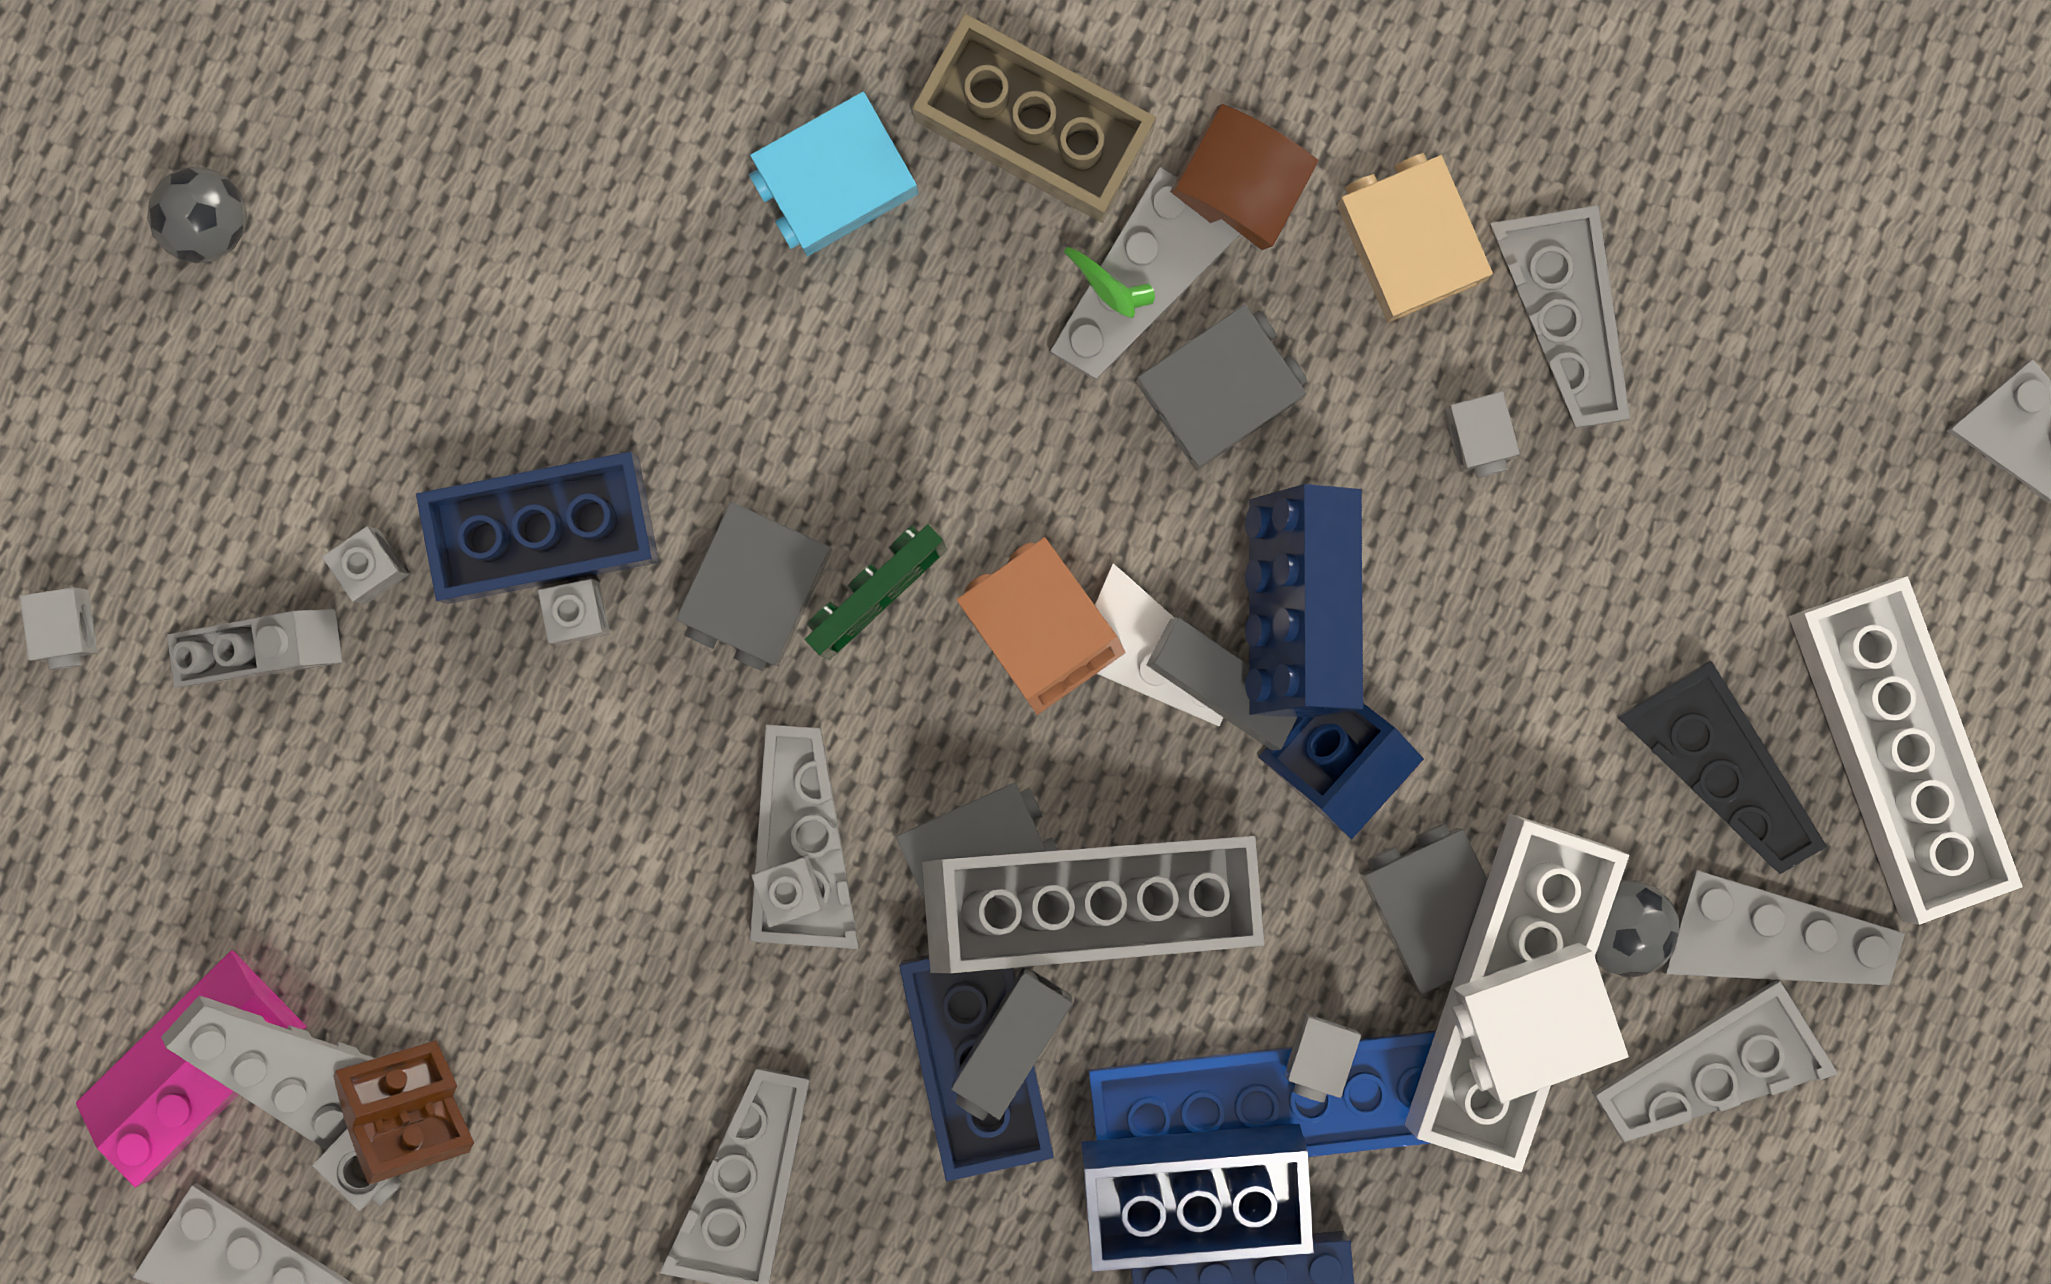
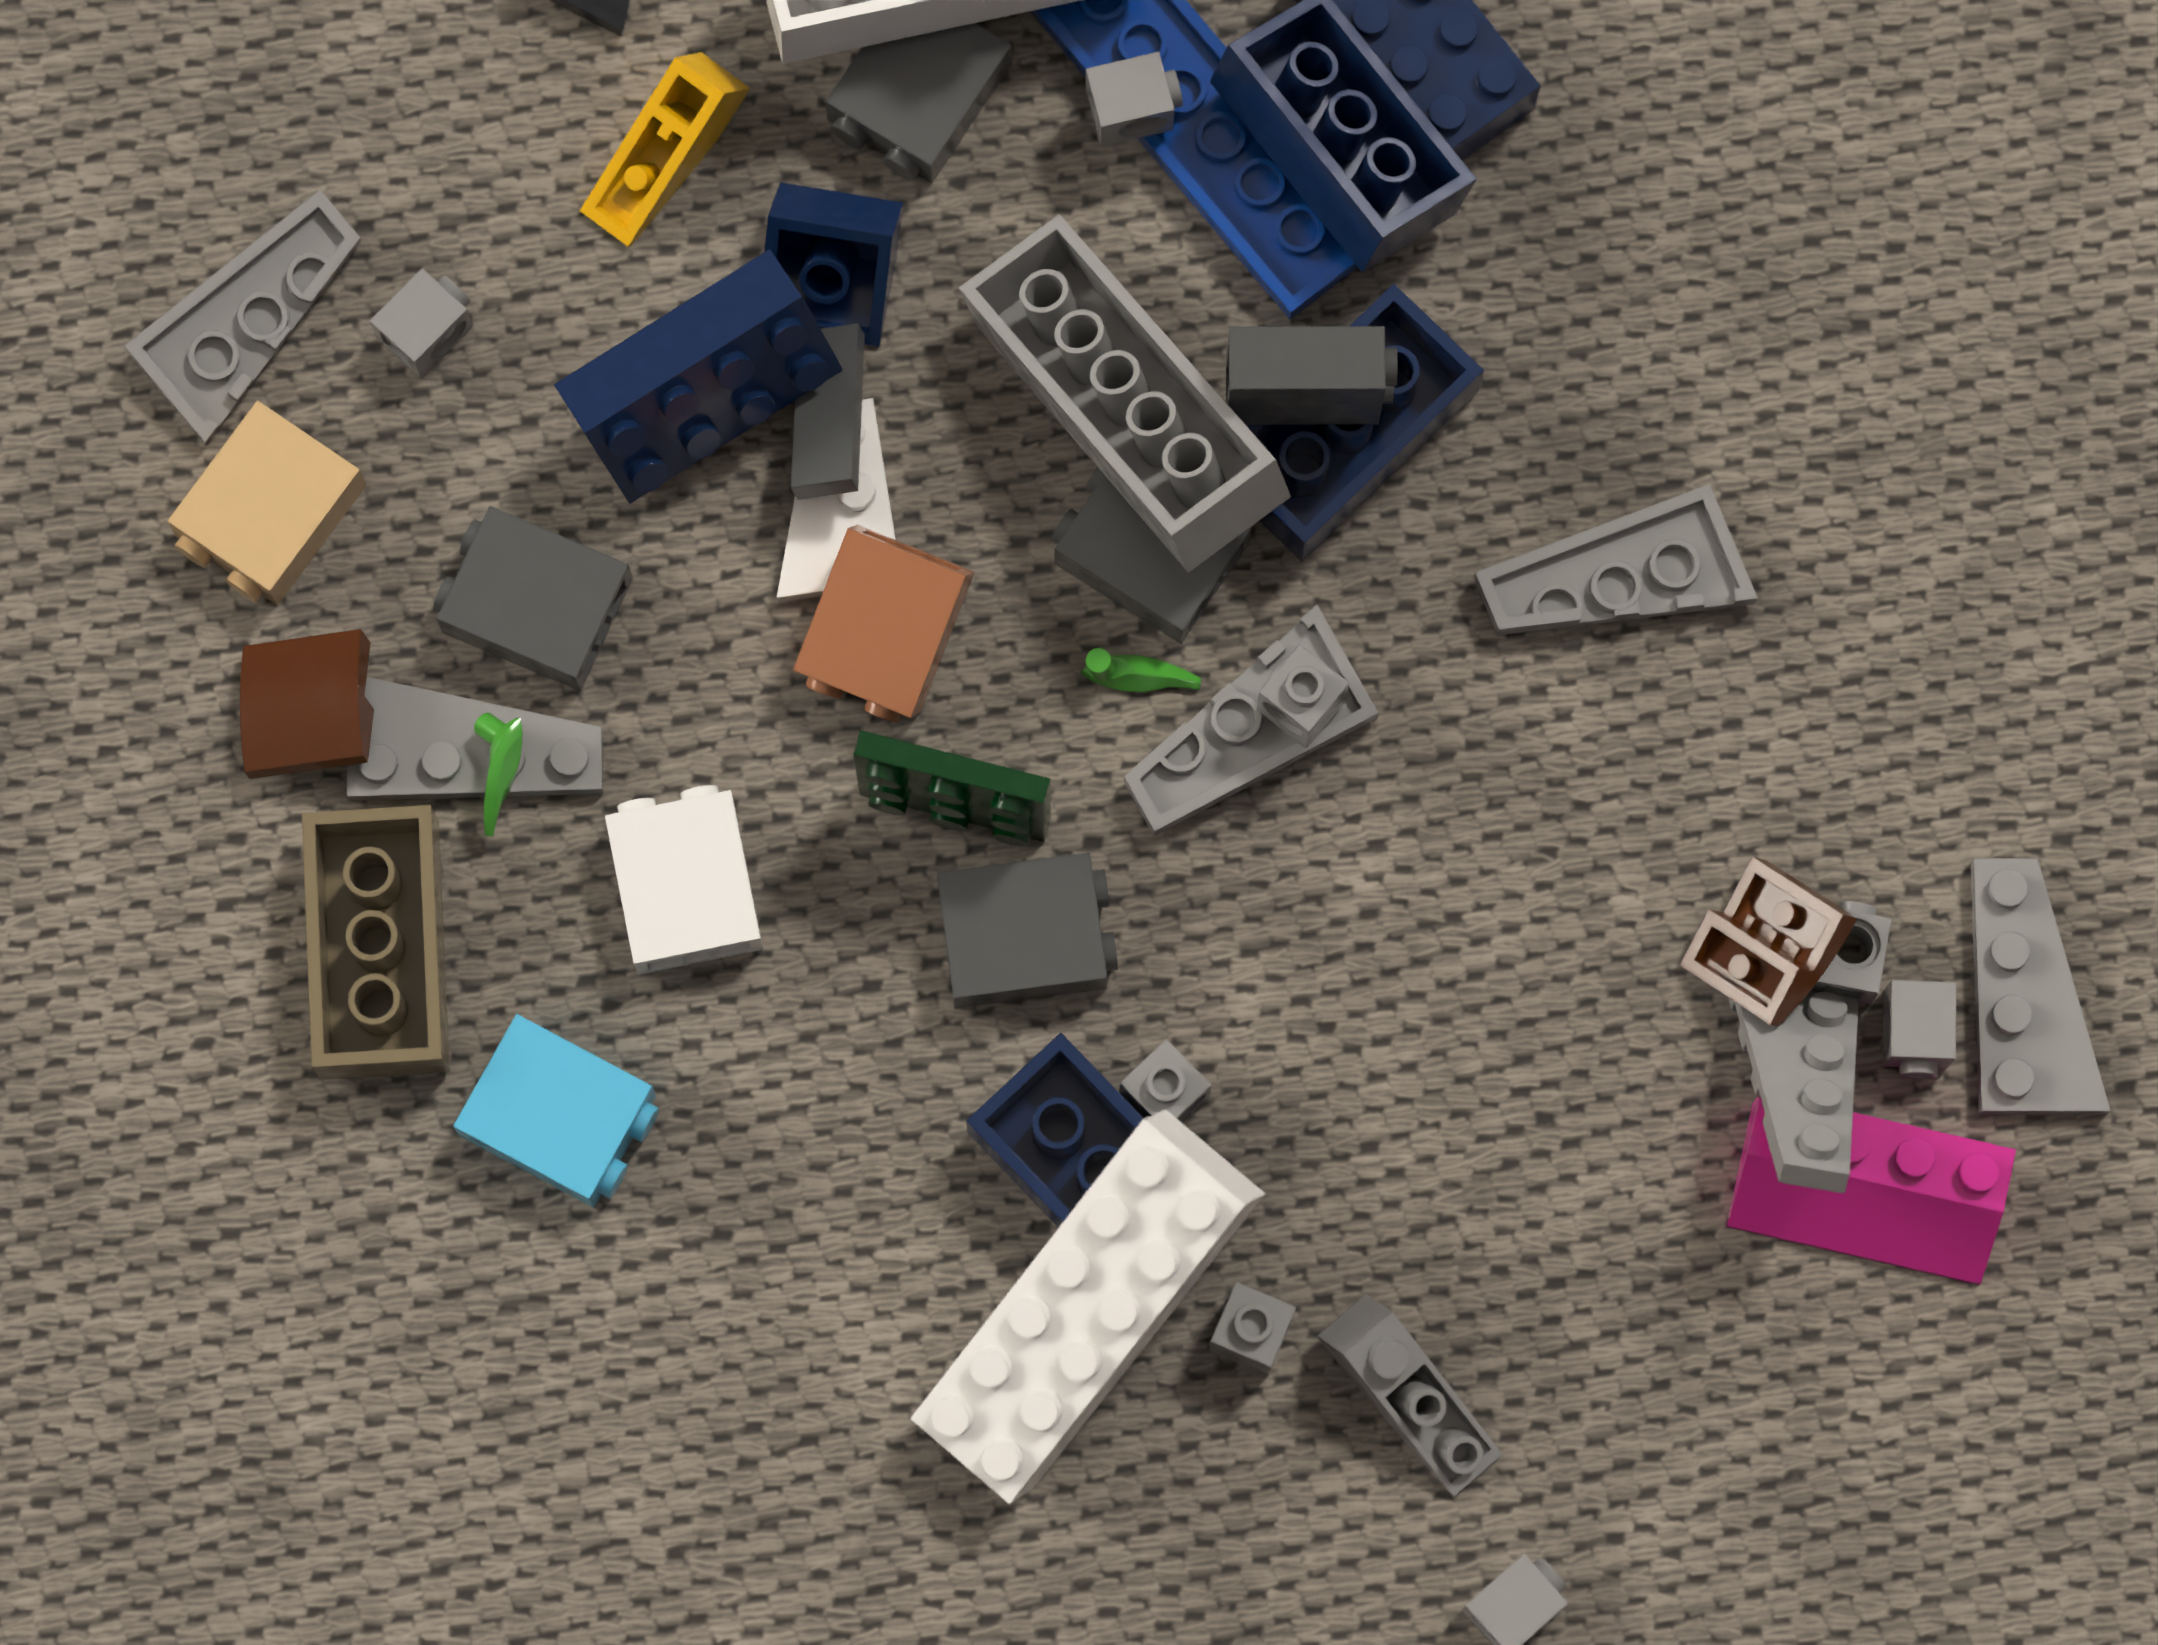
camera: 125 degrees left, 10 degrees down
(276, 1180) = (1919, 1027): none -> light grey brick
(437, 453) = (1087, 1305): none -> white brick
(894, 789) = (1135, 672): none -> bright green bar
(945, 367) = (683, 879): none -> white brick
(1508, 693) = (664, 145): none -> yellow slope

